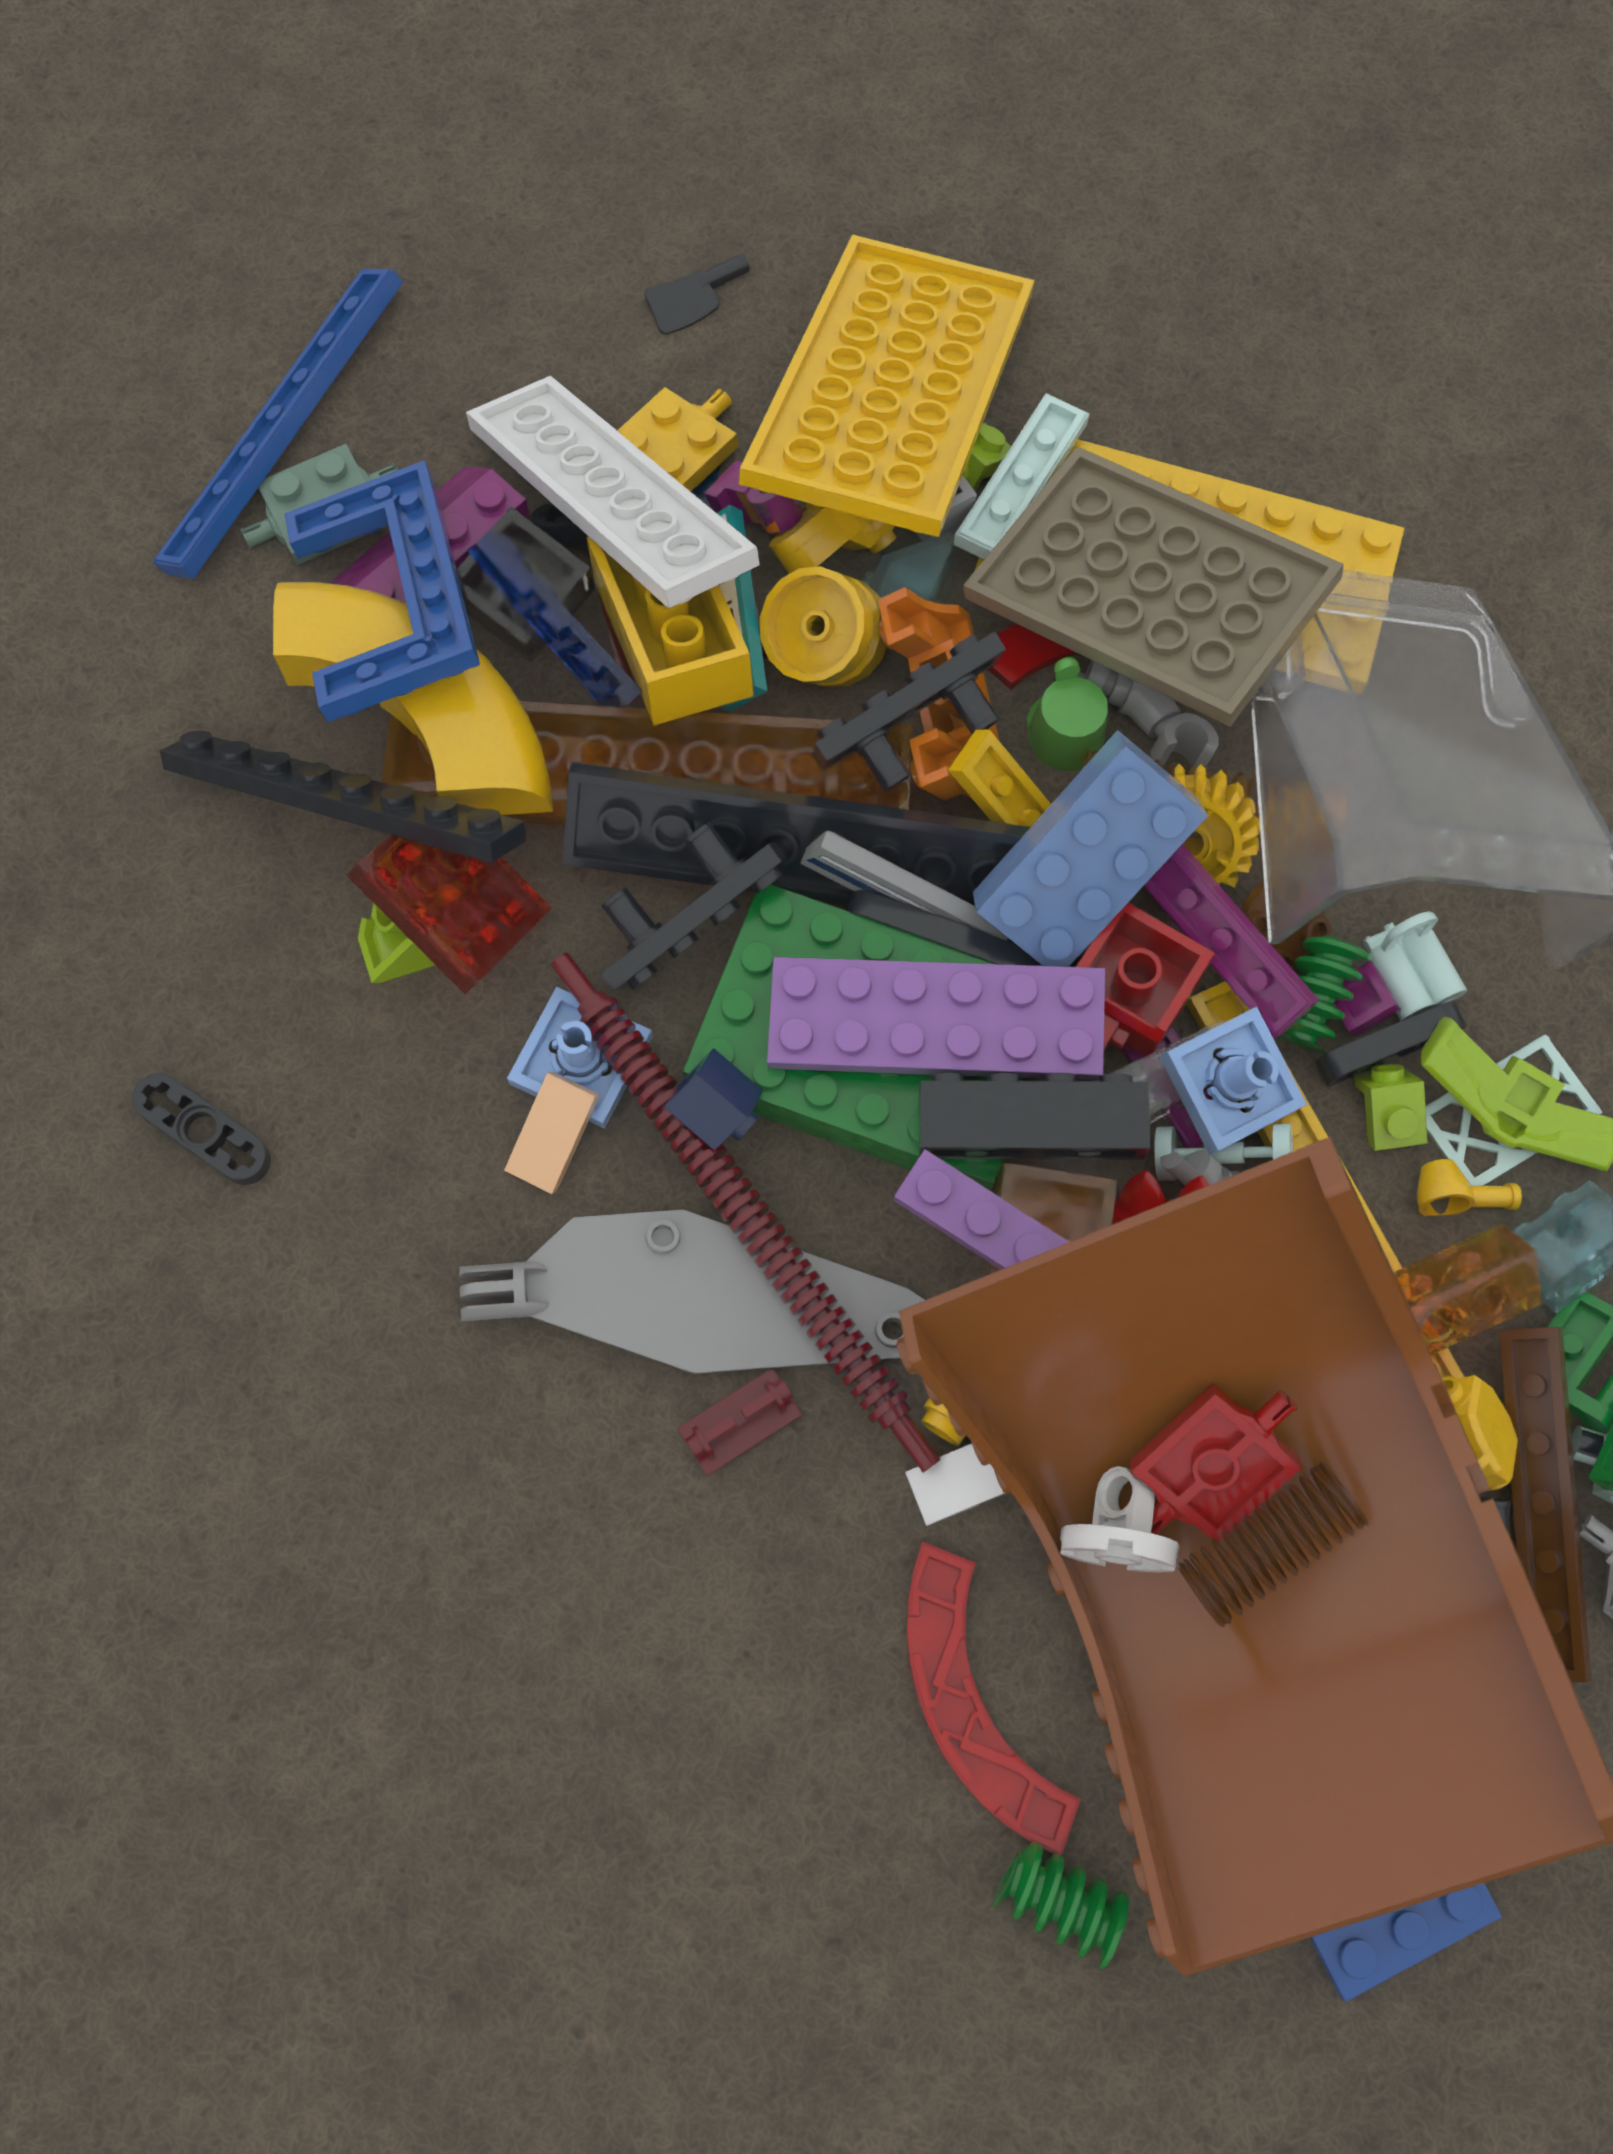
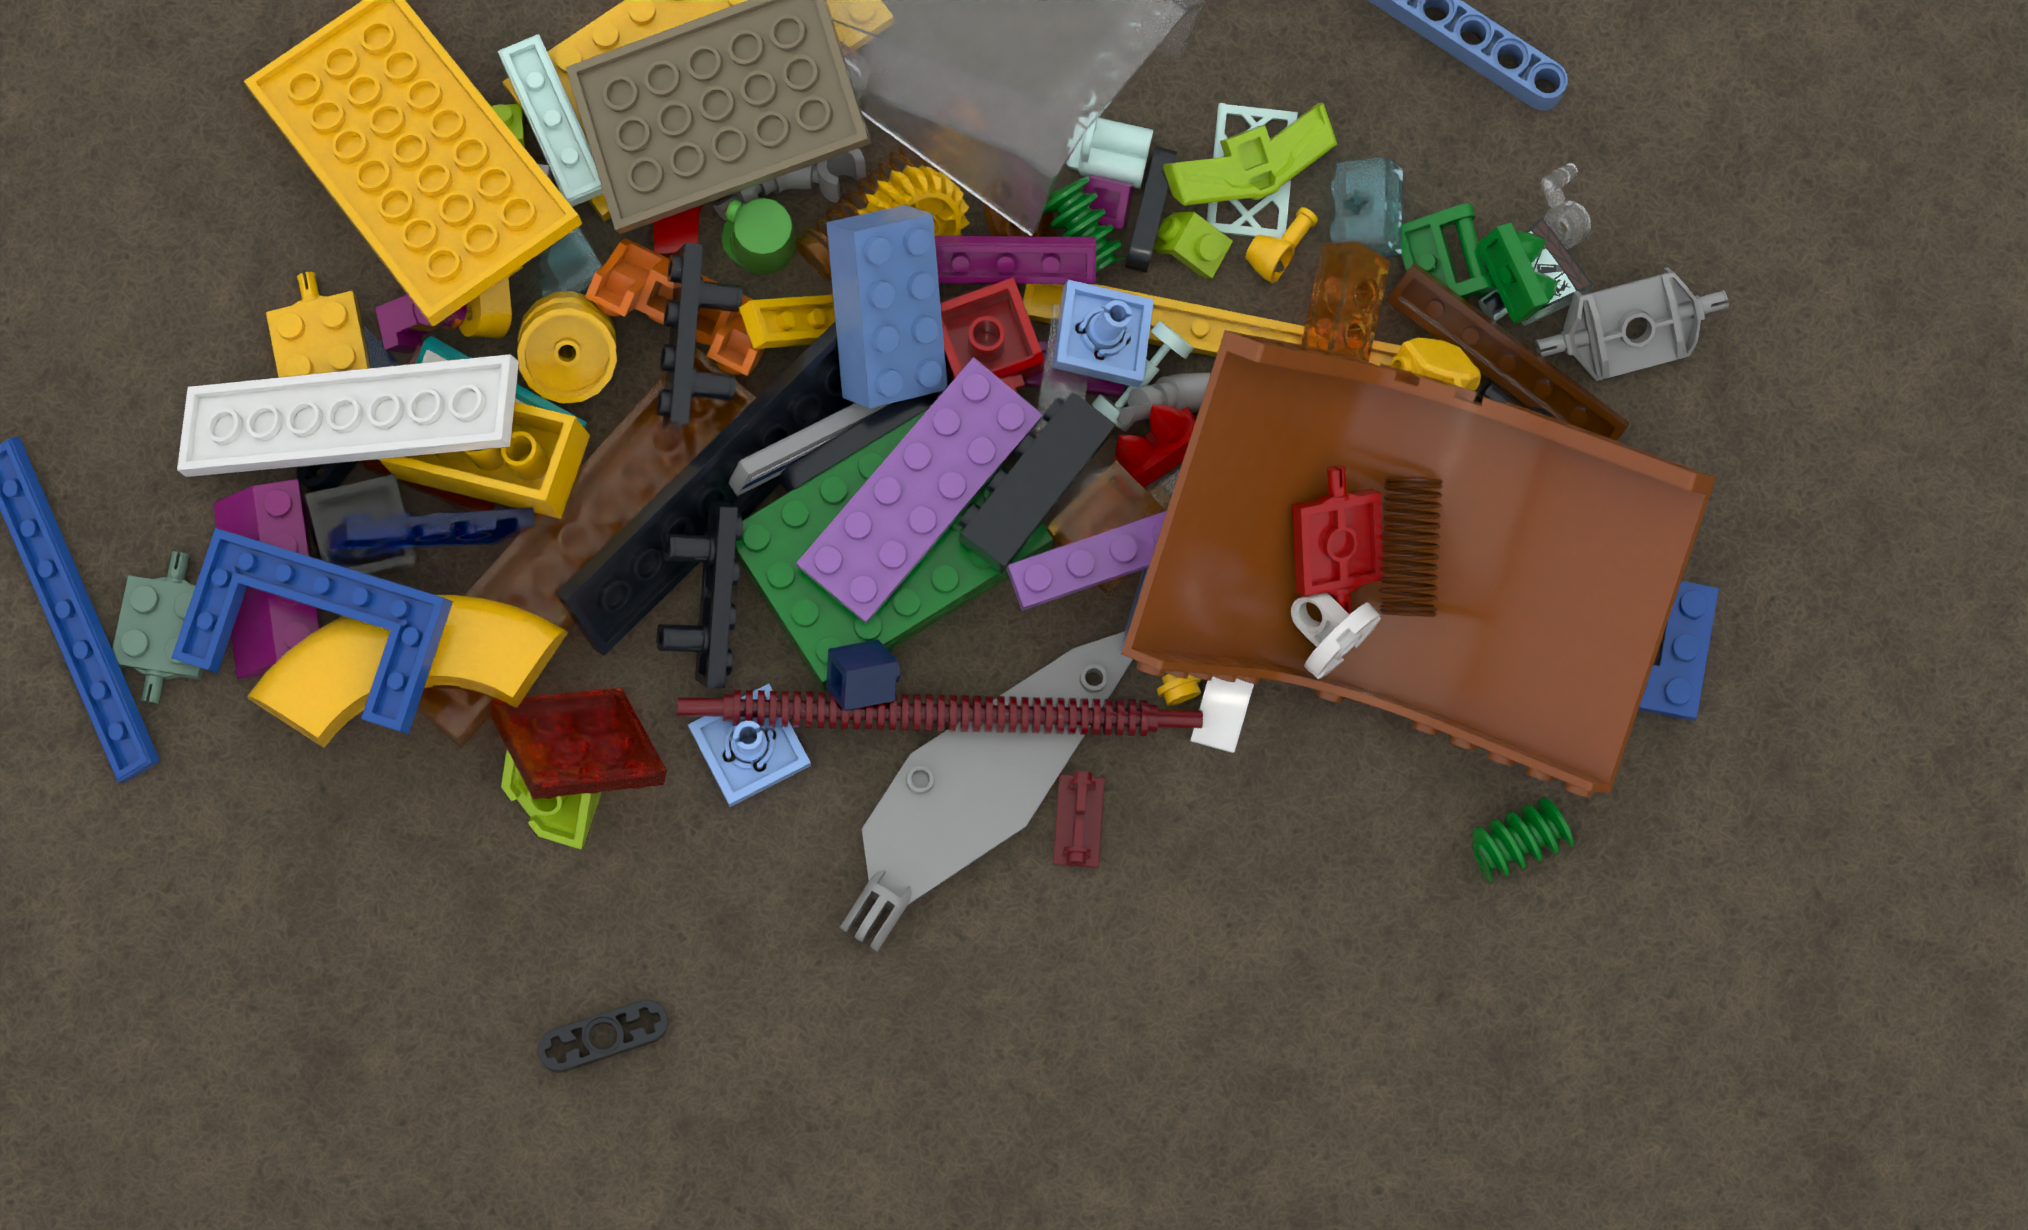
camera: 60 degrees left, 5 degrees up
(345, 796) = (446, 768): black plate -> none
(552, 1132) = (791, 800): light nougat tile -> none
(691, 297) = (198, 236): black piece -> none
(957, 1714) = (1362, 820): red tile -> none

